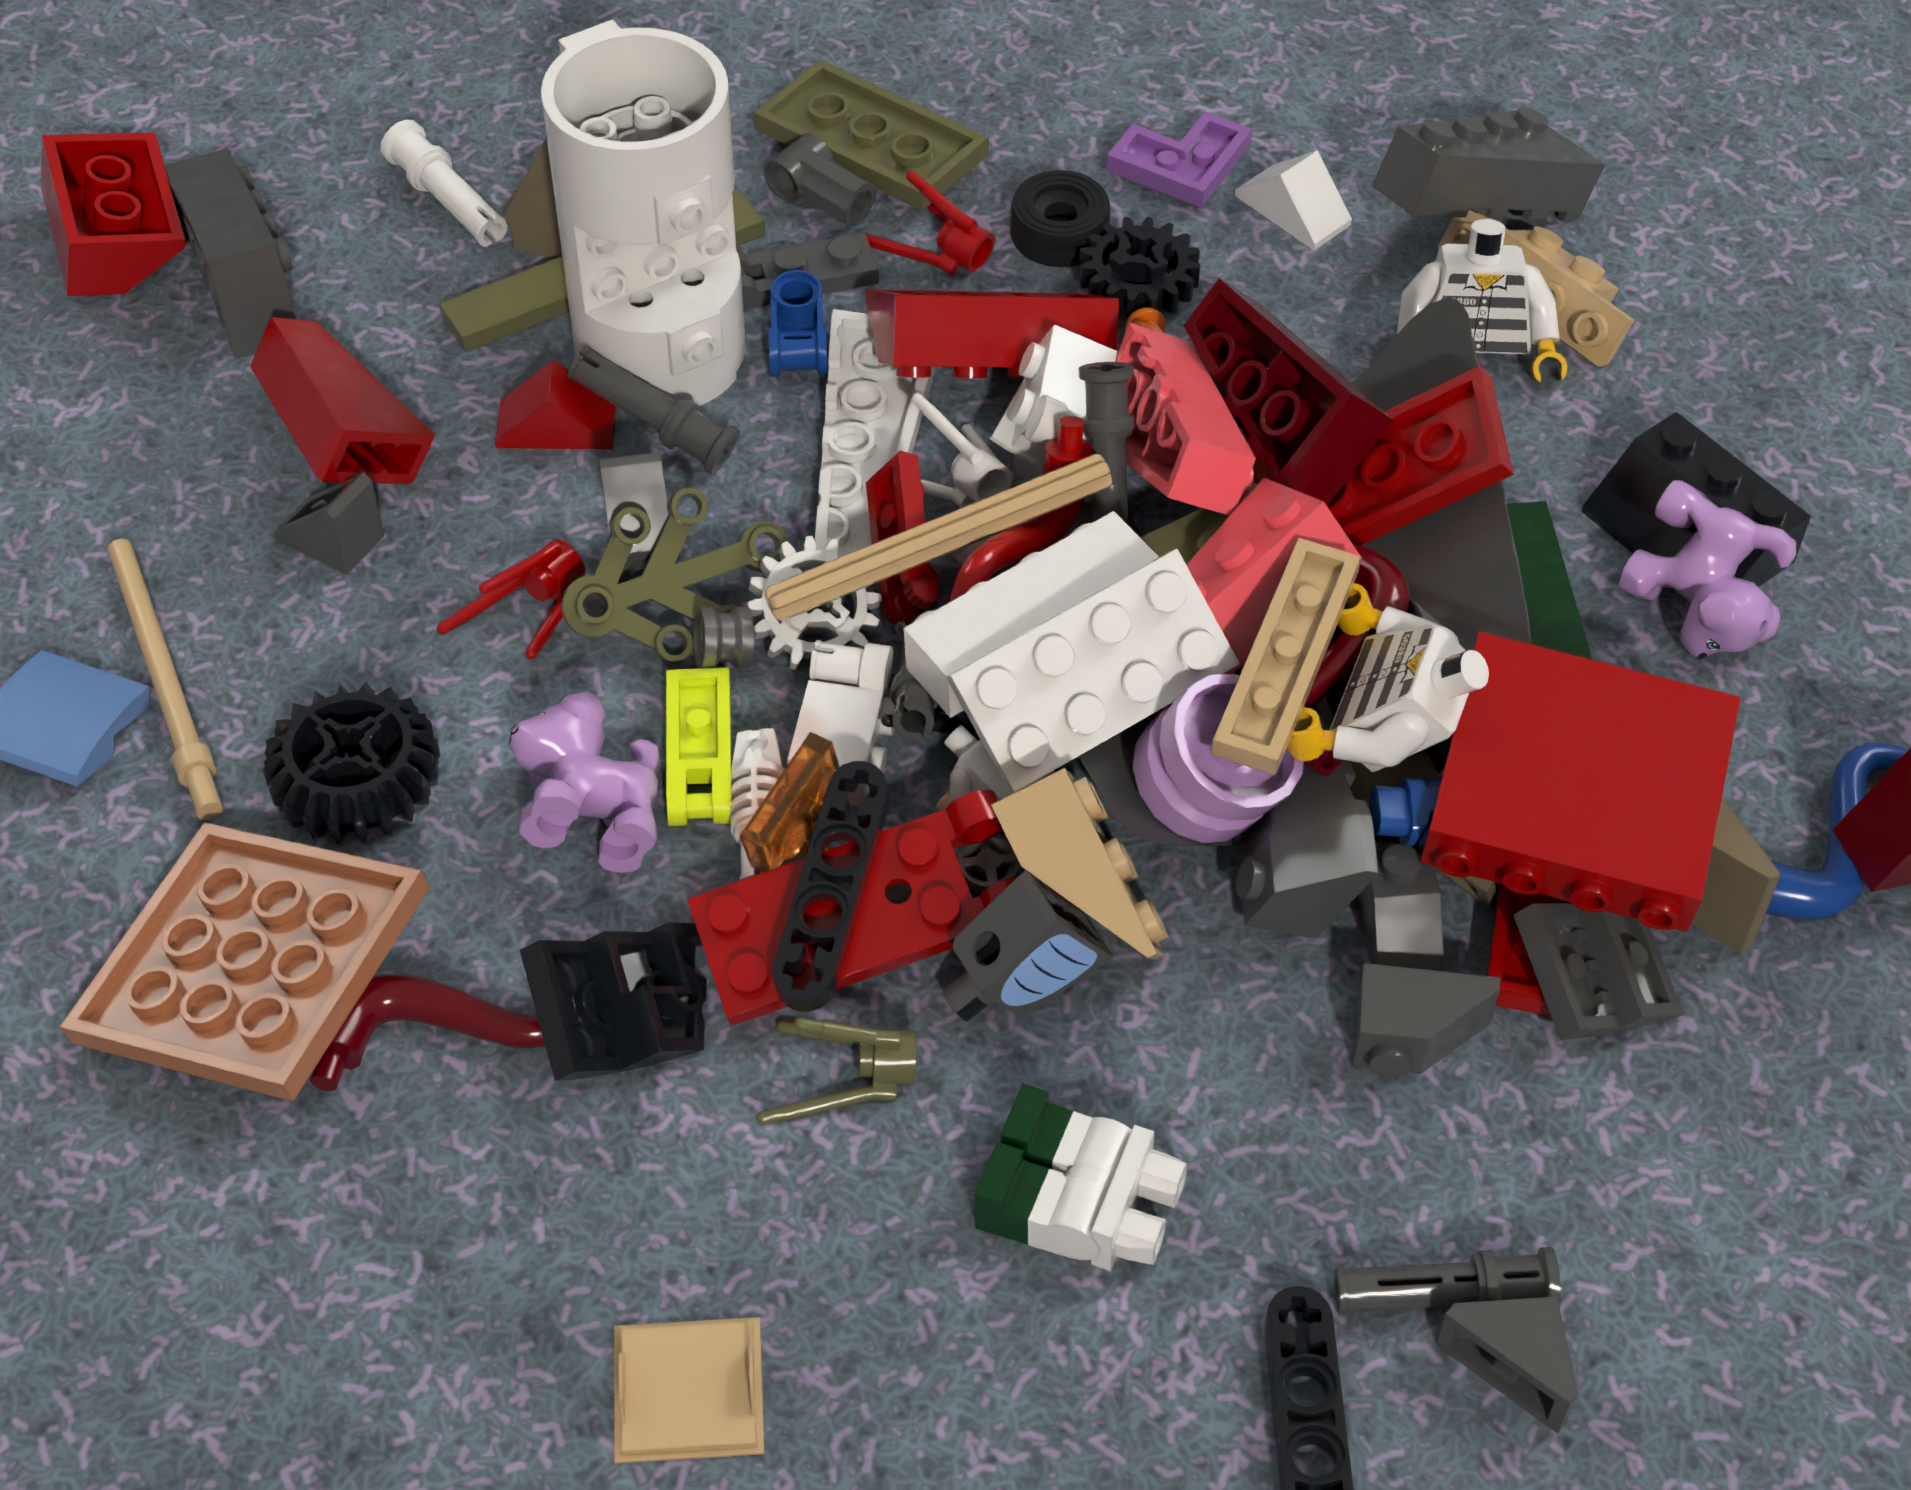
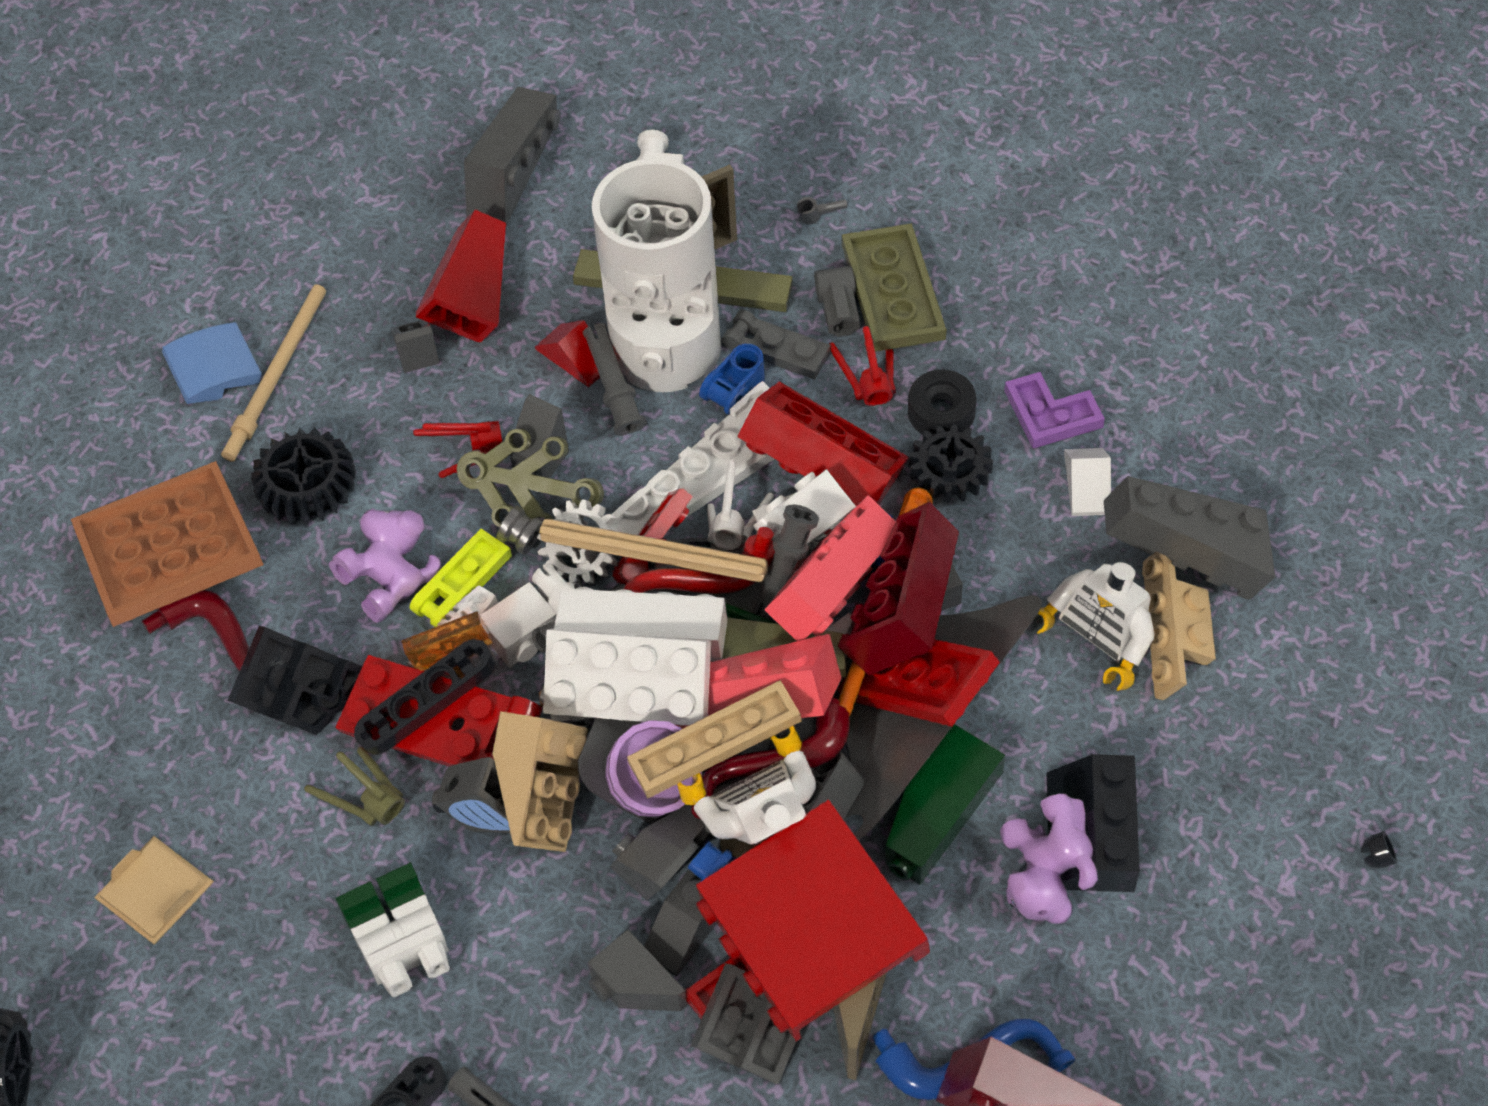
camera: 45 degrees right, 5 degrees up
(108, 210) = (470, 94): red slope -> none

